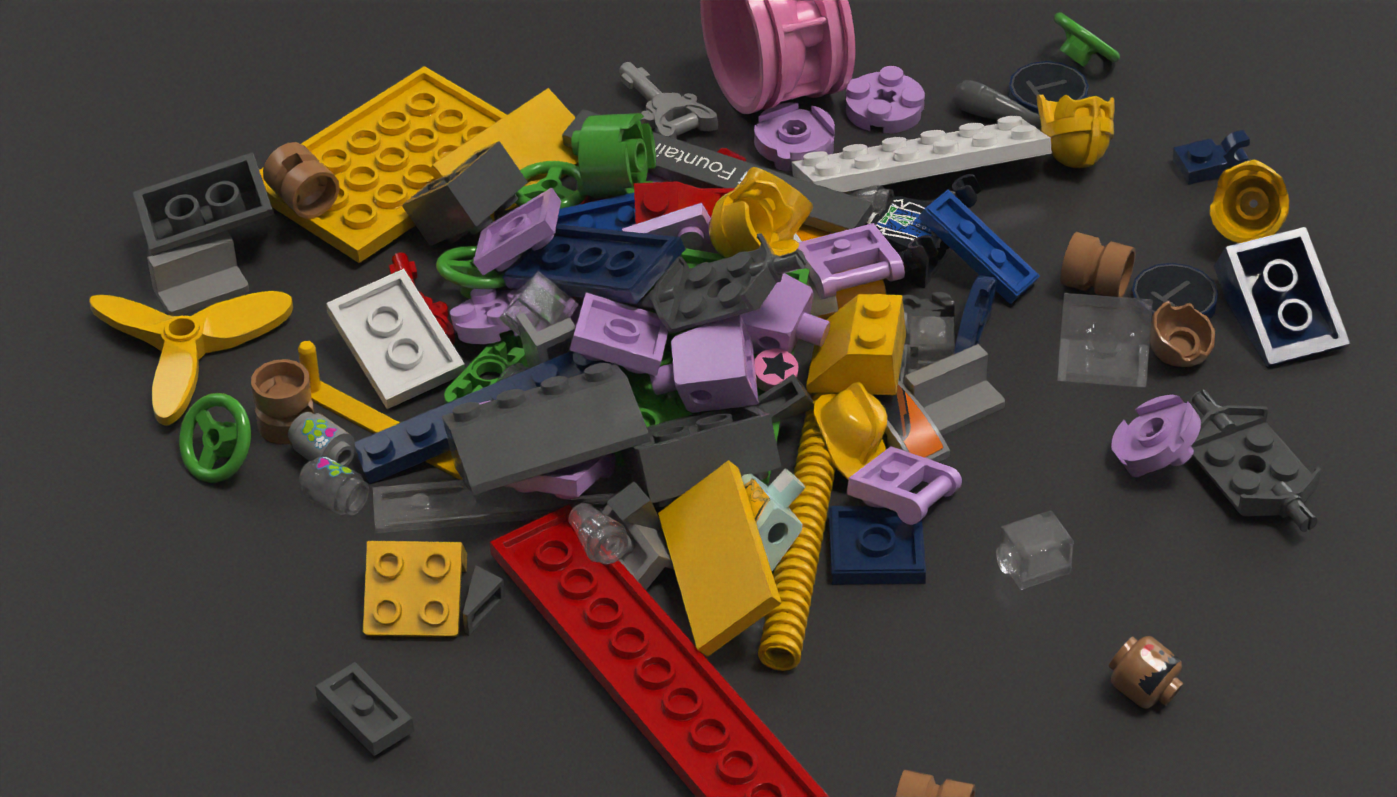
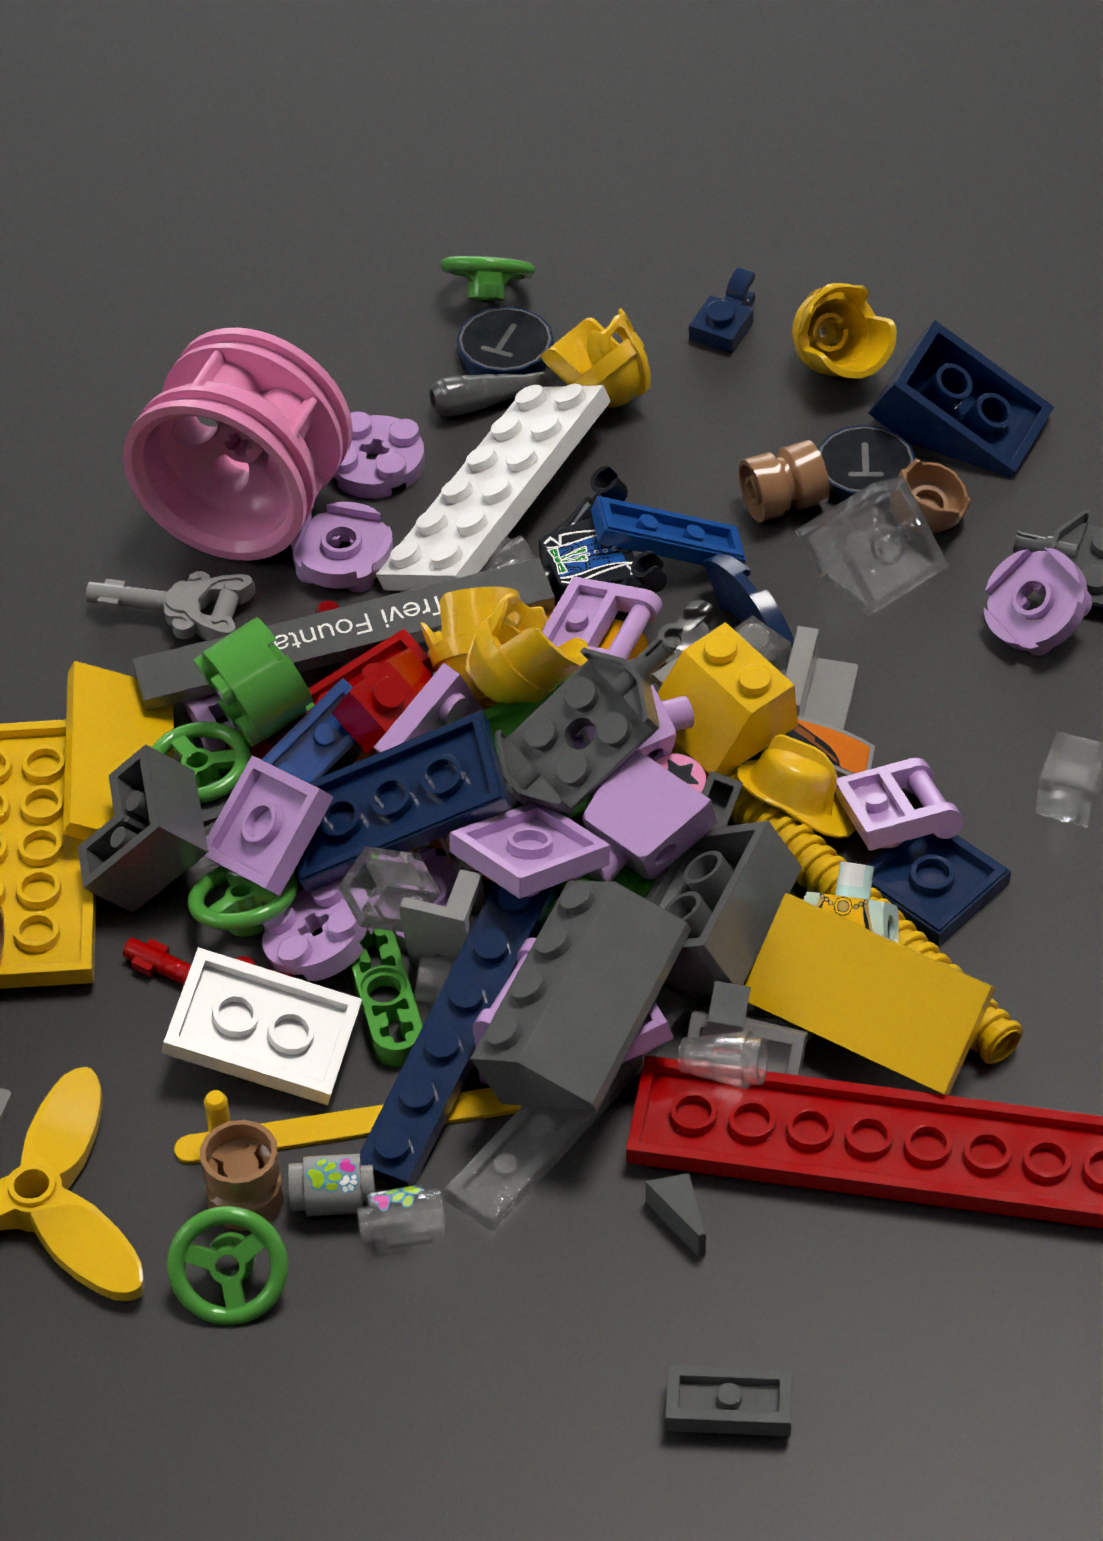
camera: 45 degrees left, 5 degrees up
(413, 588) = (616, 1250): yellow bracket -> none

